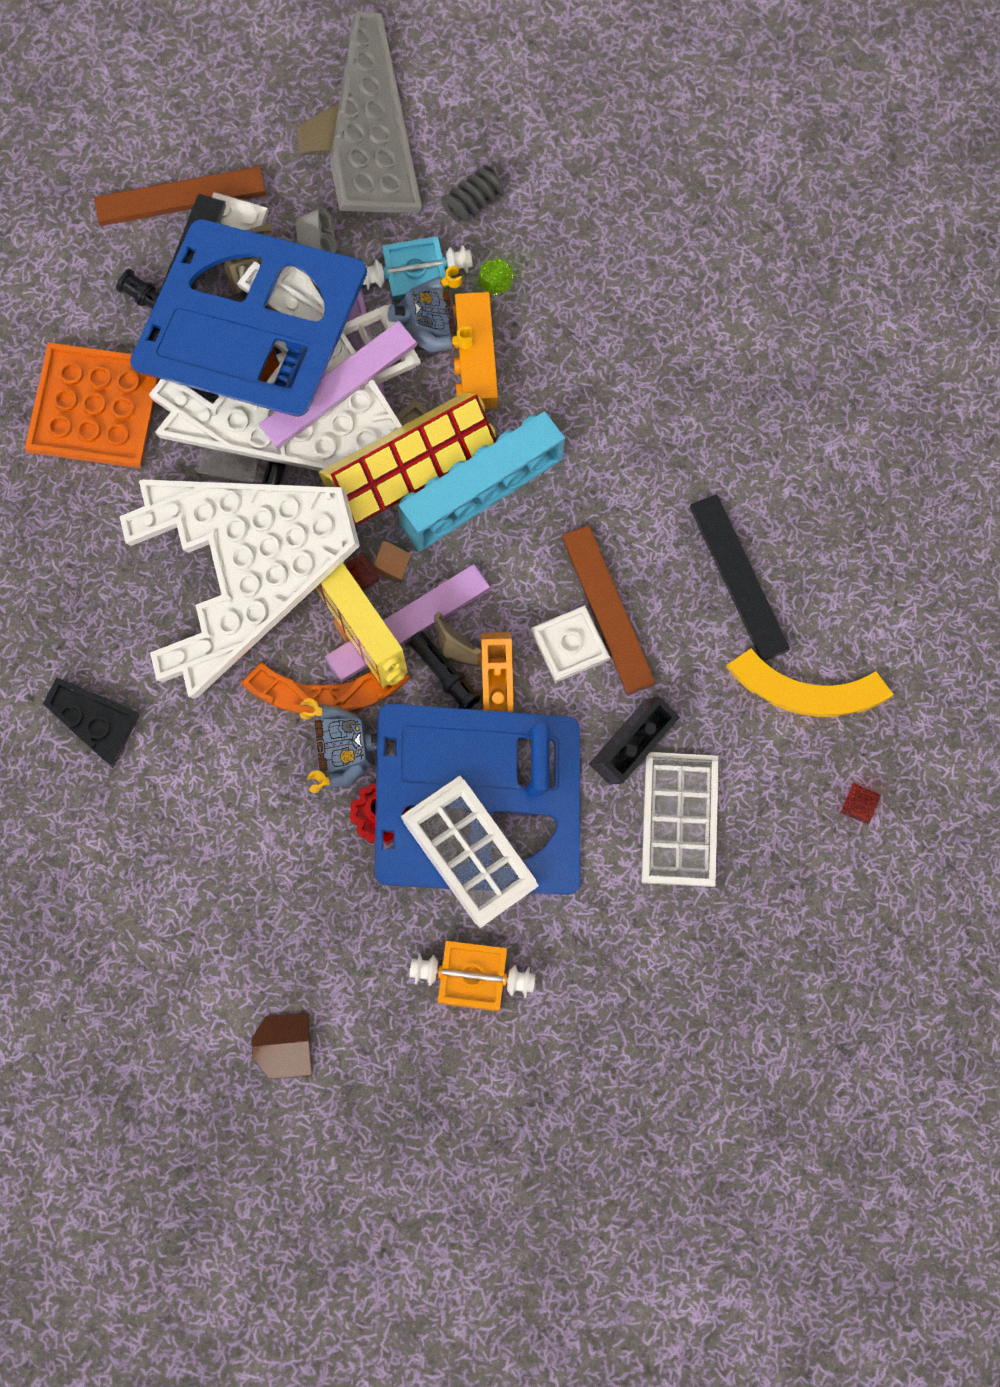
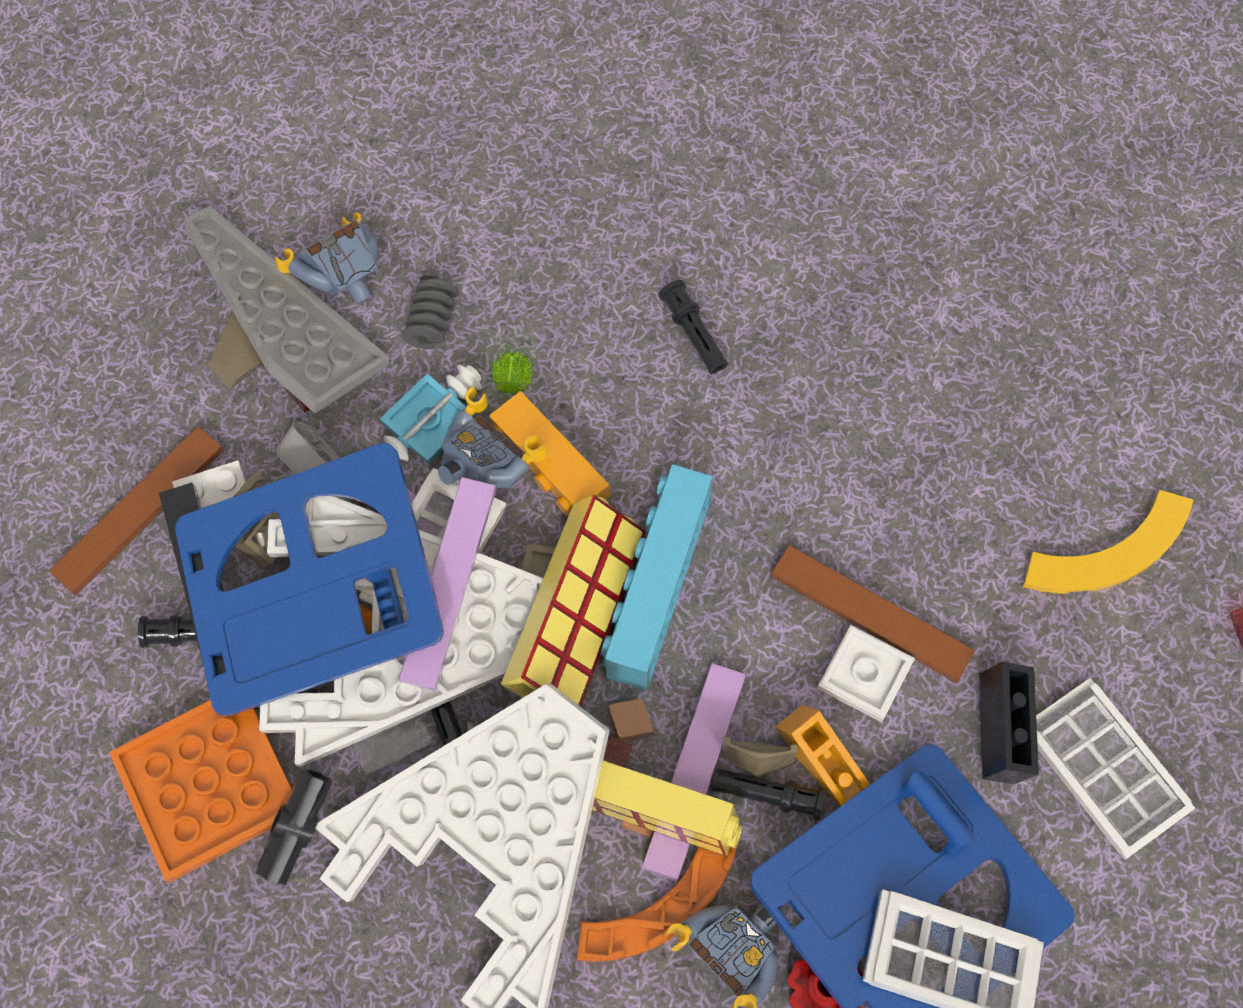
camera: 30 degrees left, 5 degrees down
(126, 470) = (293, 826): none -> black piece
(437, 114) = (336, 260): none -> sand blue torso
(649, 320) = (688, 312): none -> black pin
(739, 578) = (965, 494): black tile -> none

